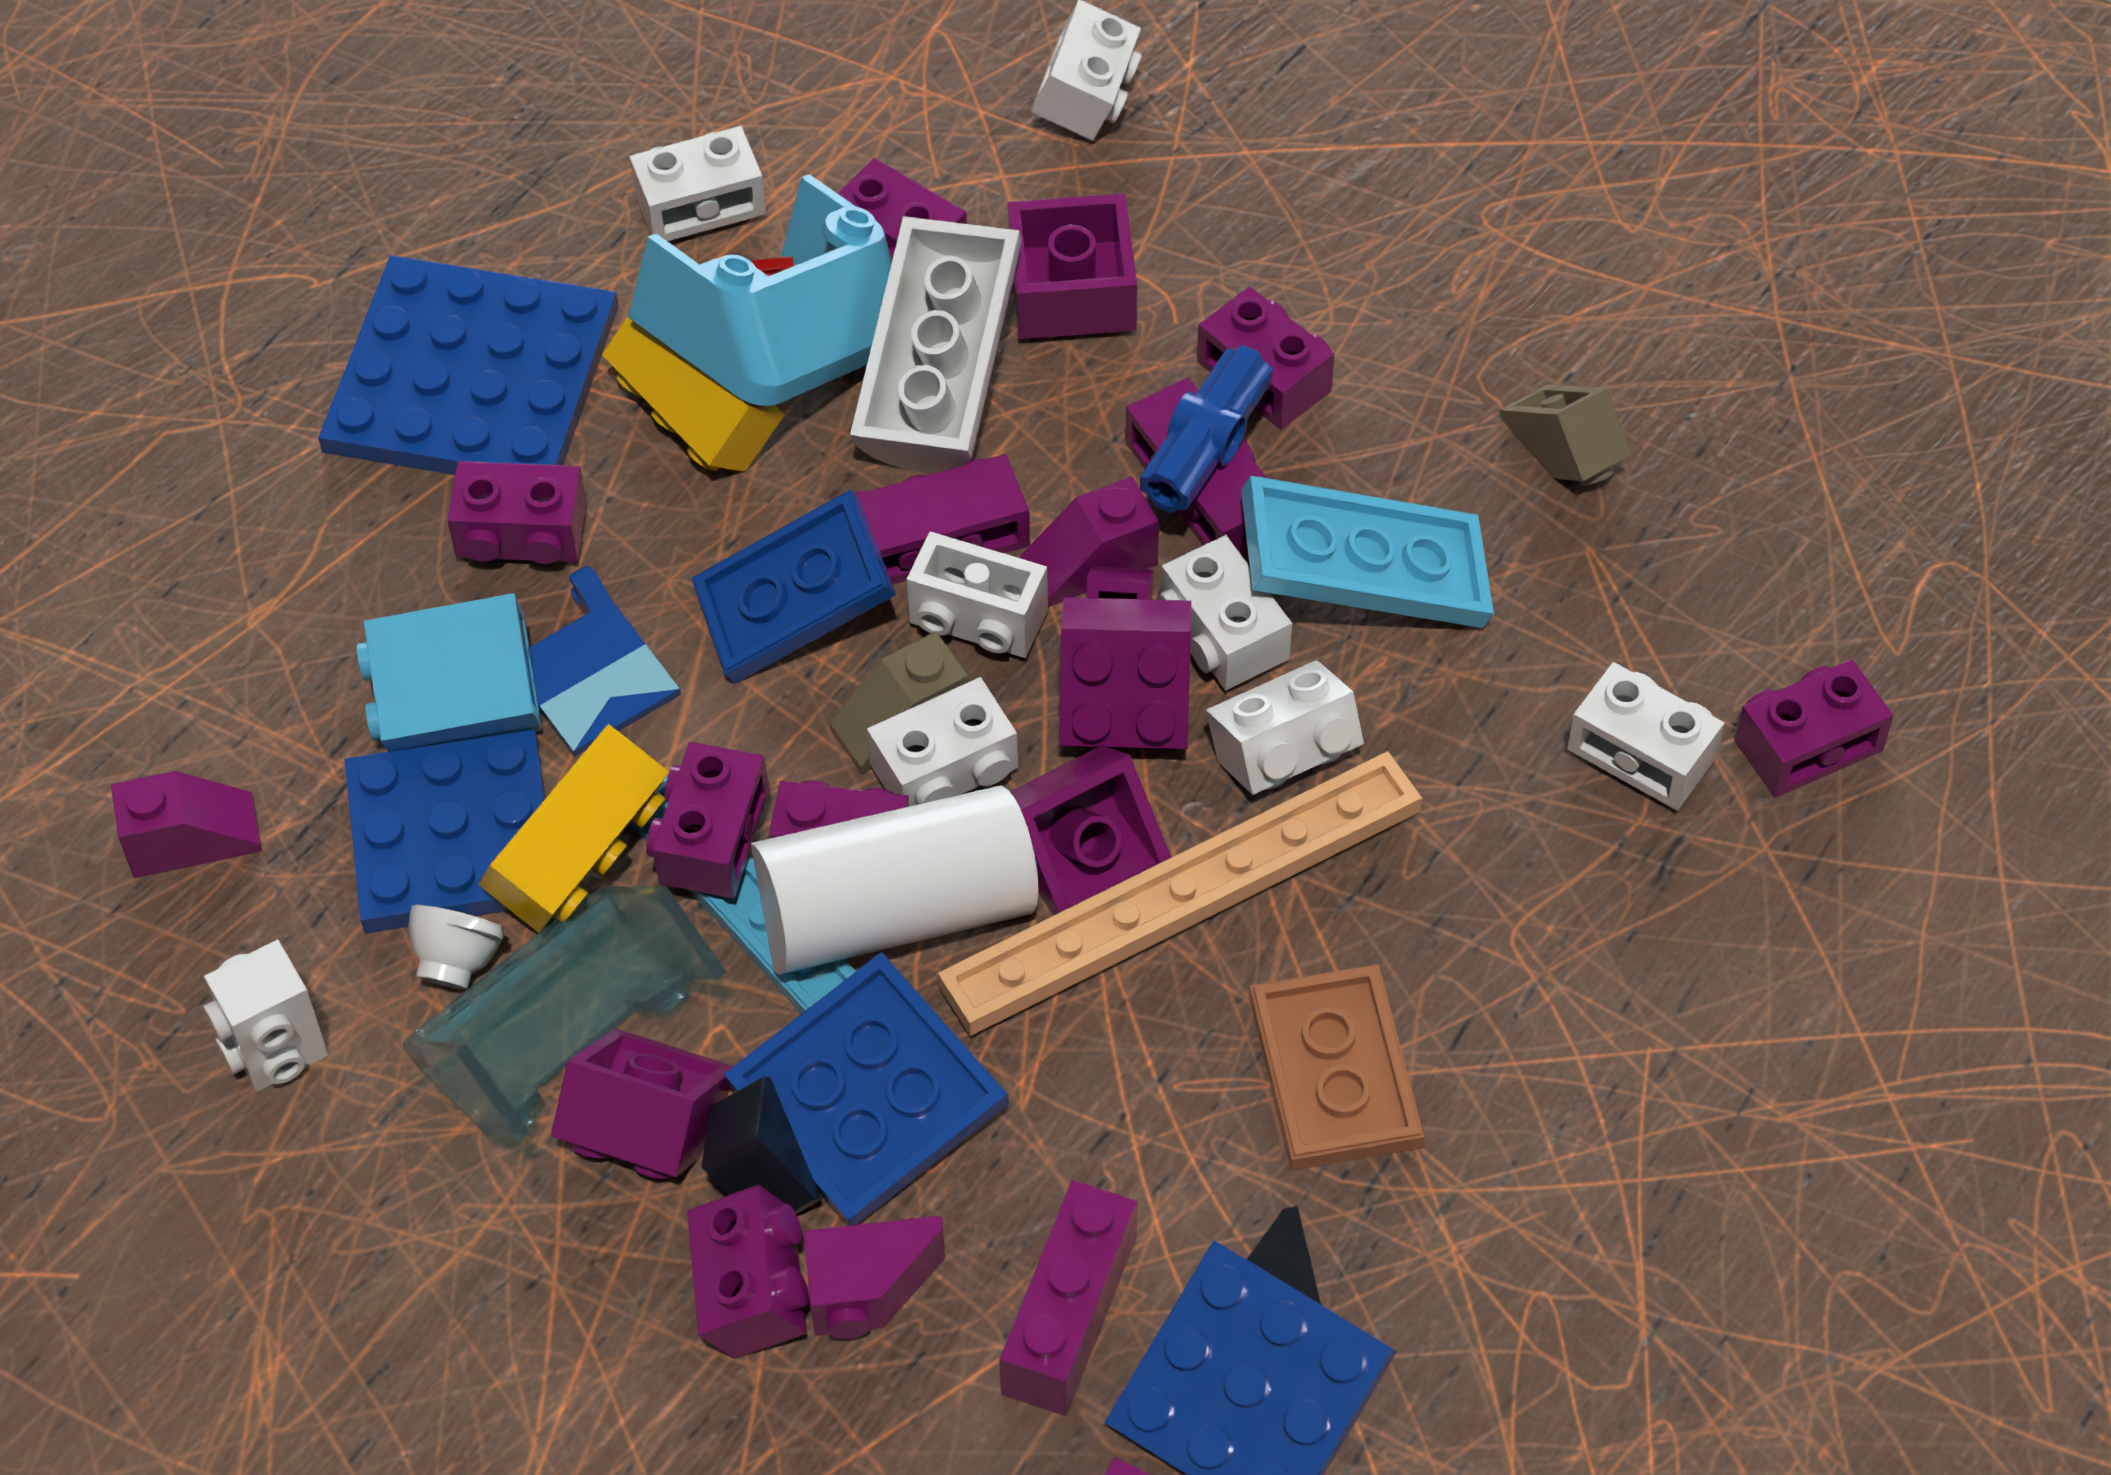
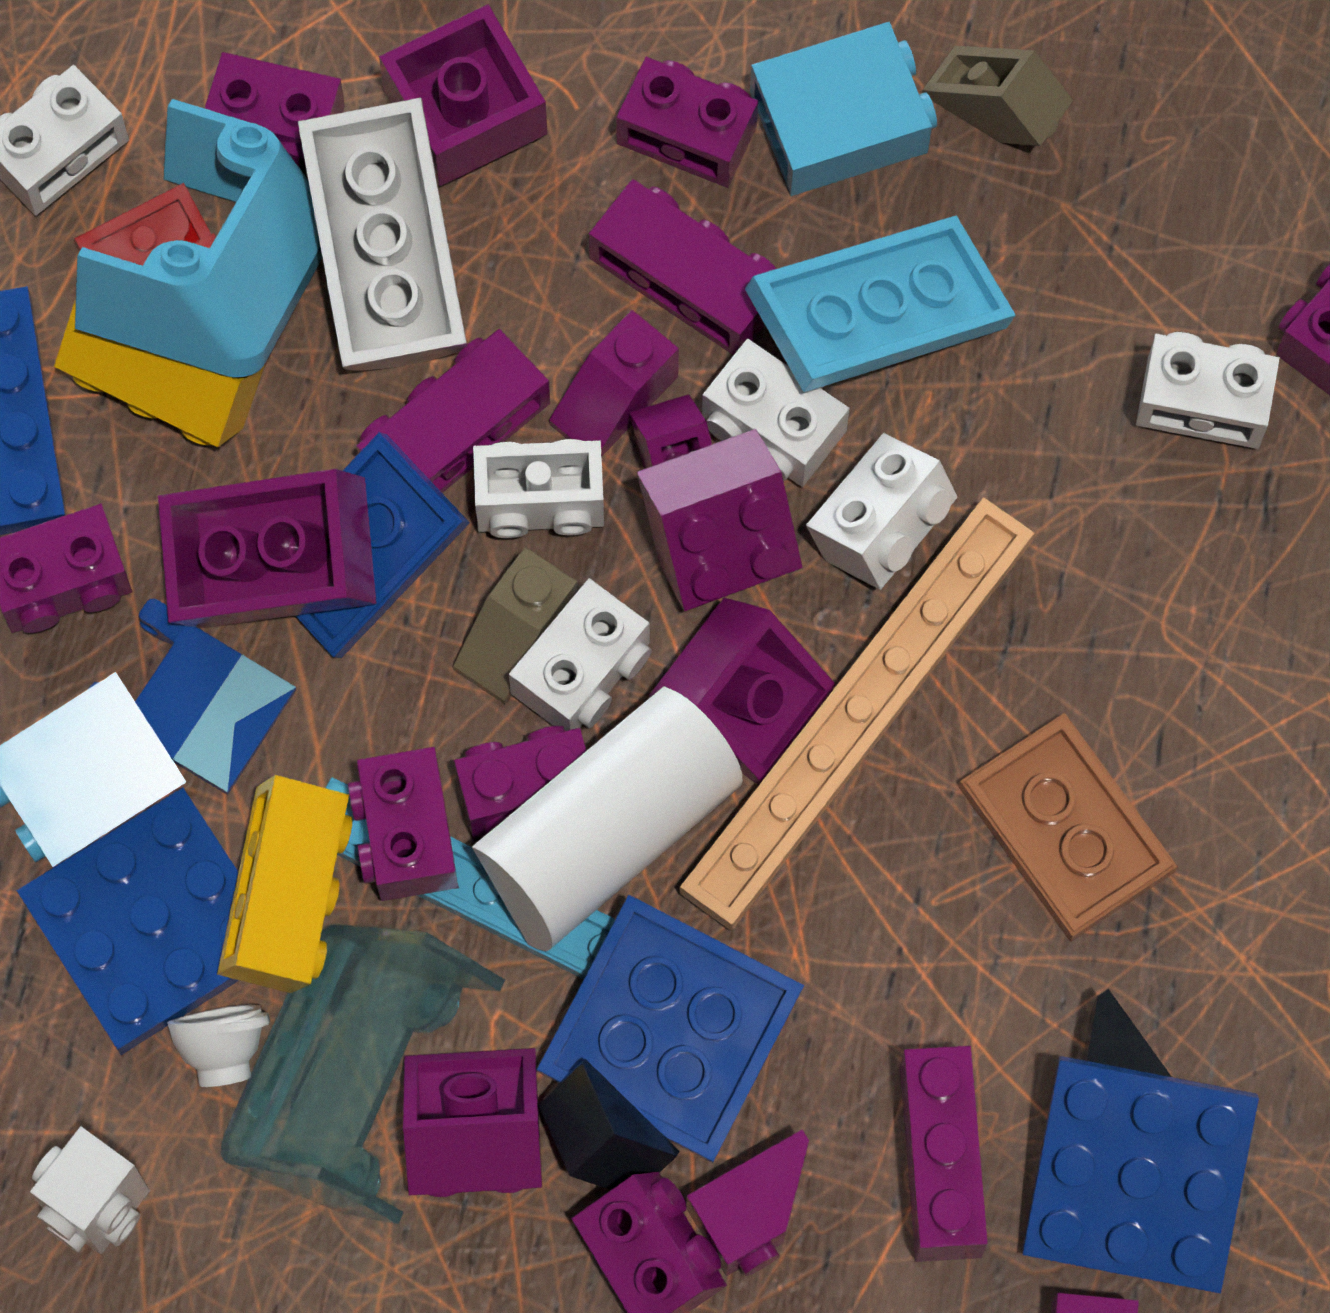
camera: 25 degrees left, 15 degrees up
(704, 550) = (267, 549): none -> magenta brick
(1206, 429) = (683, 235): blue piece -> none
(1415, 394) = (842, 108): none -> medium azure brick

